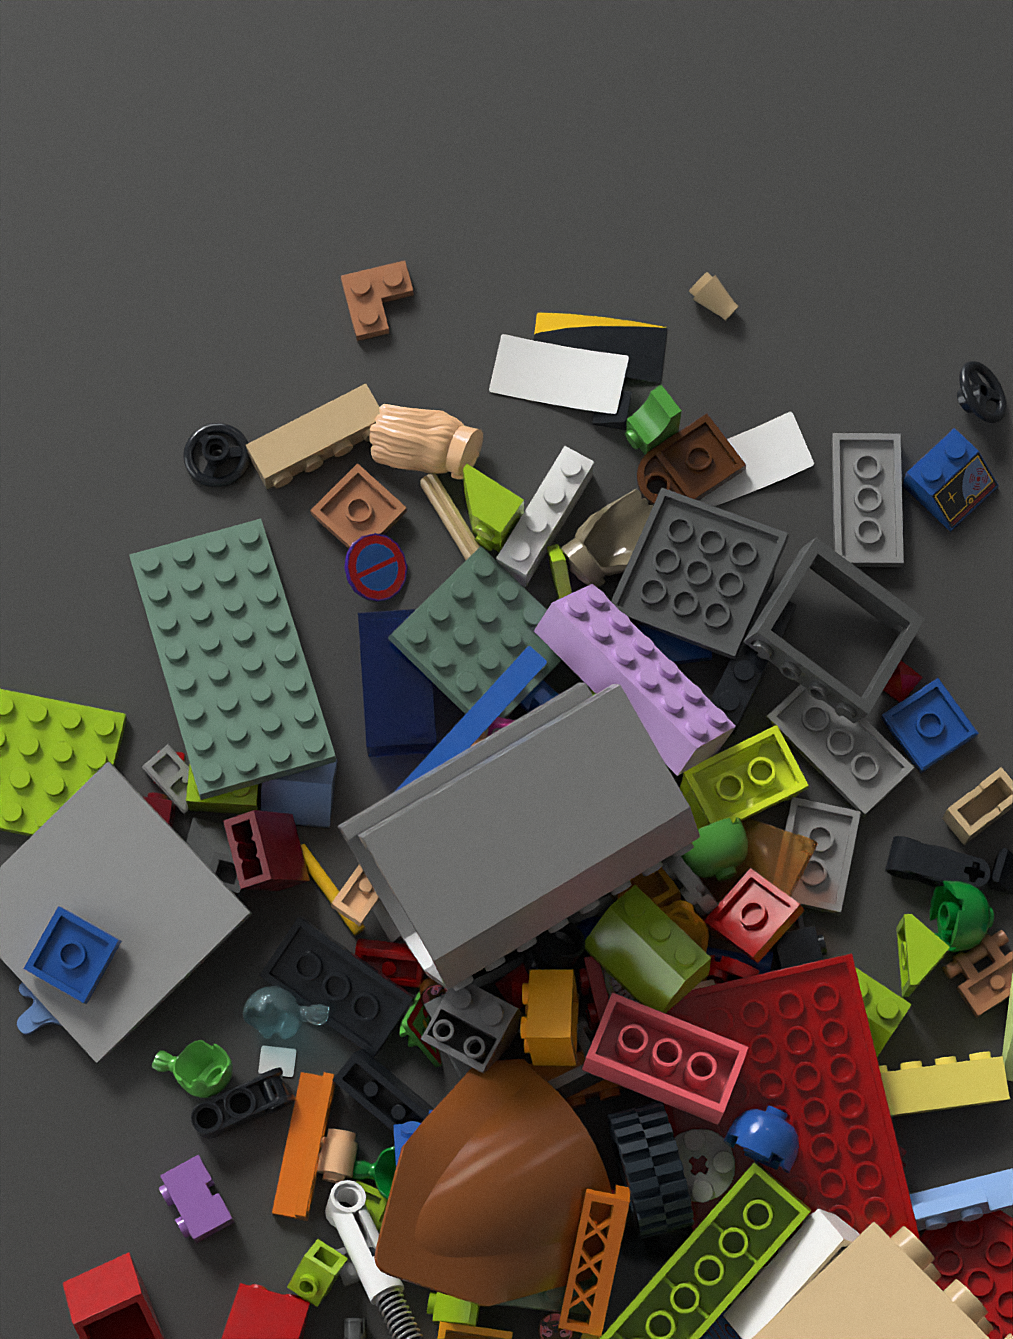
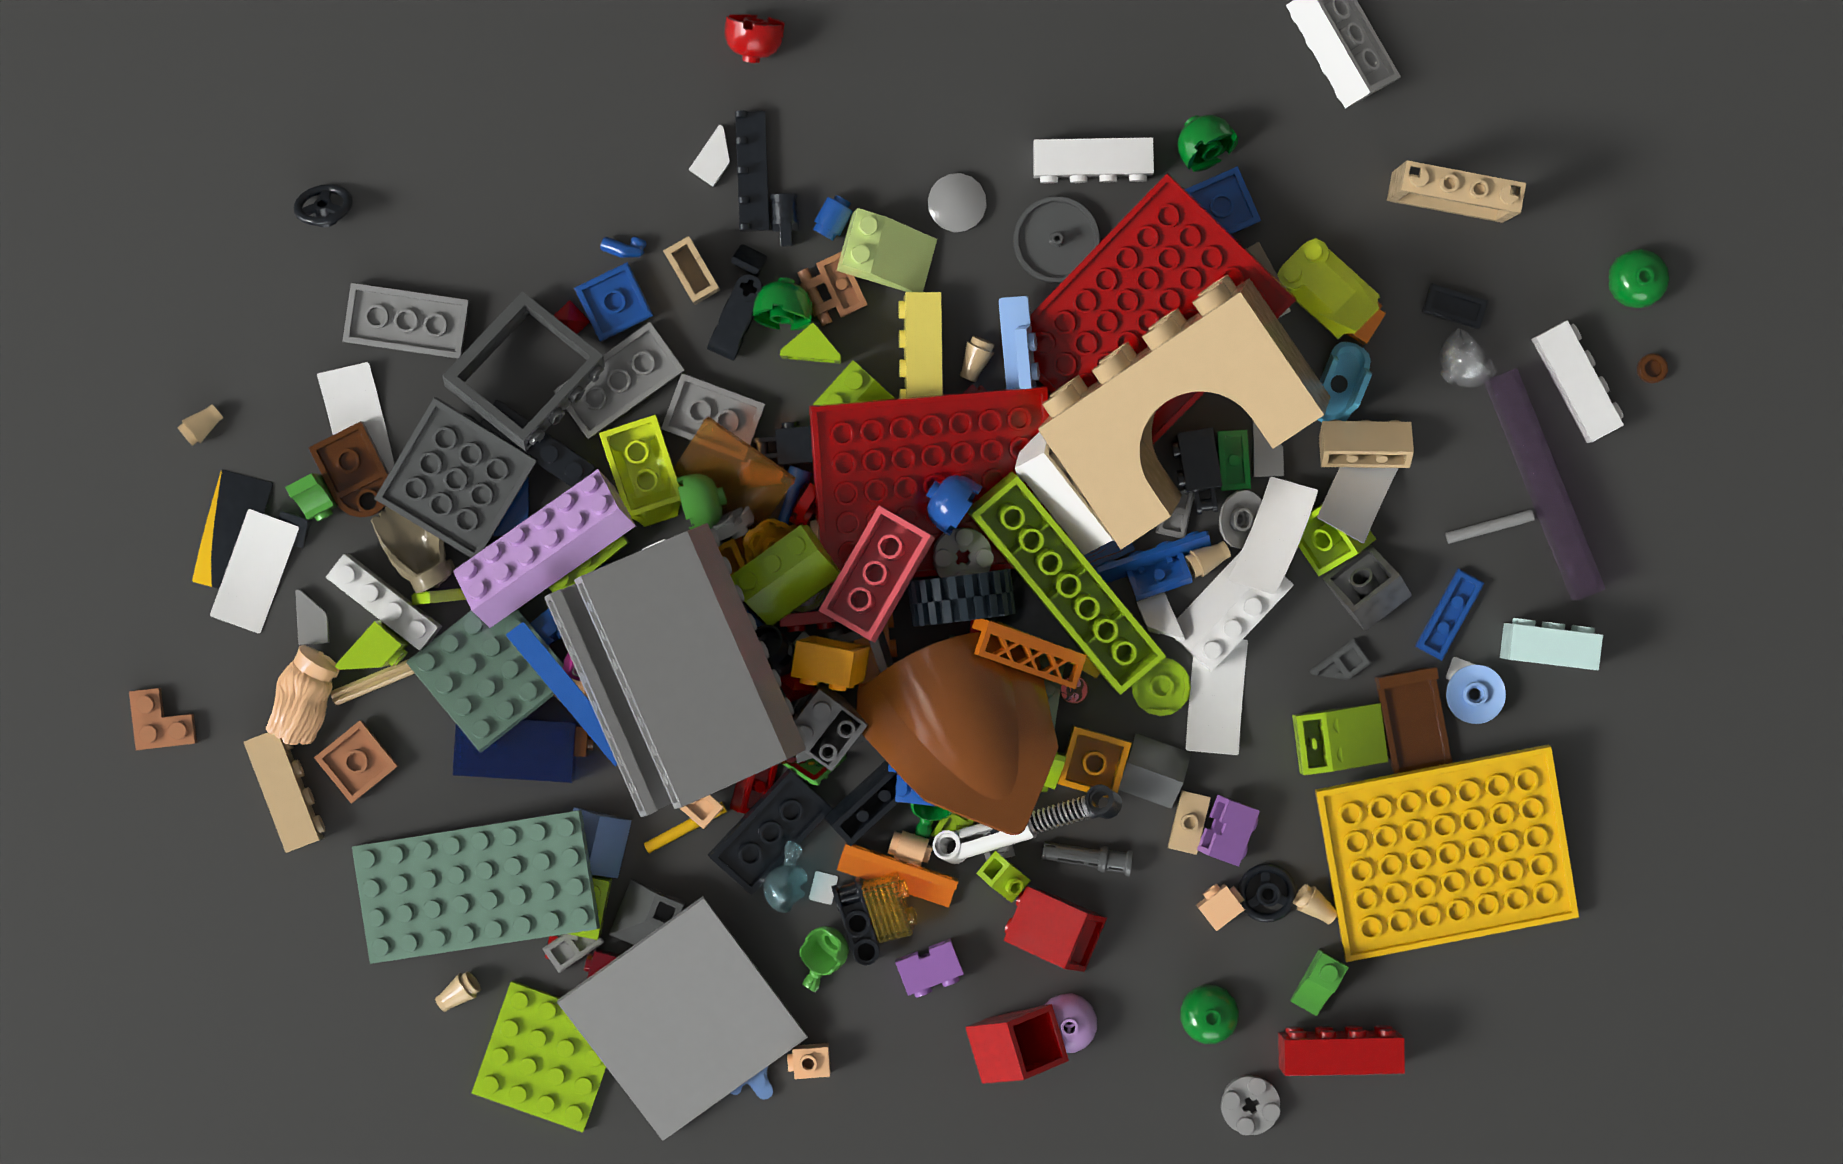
camera: 85 degrees left, 15 degrees up
(68, 1071) = (809, 1061): none -> light nougat brick
(72, 954) = (717, 1048): blue plate -> none
(108, 658) = (460, 990): none -> tan cone
(212, 443) = (277, 882): black piece -> none
(263, 1139) = (888, 907): none -> clear yellow brick
(266, 850) = (650, 877): dark red brick -> none
(375, 567) = (410, 753): piece -> none
(411, 756) = (583, 742): none -> reddish brown plate
(511, 443) = (311, 621): none -> light grey tile
(754, 915) = (763, 479): red plate -> none
(937, 1154) = (976, 357): none -> tan cone
(951, 480) = (399, 245): slope -> none
(991, 726) = (623, 250): none -> blue arm

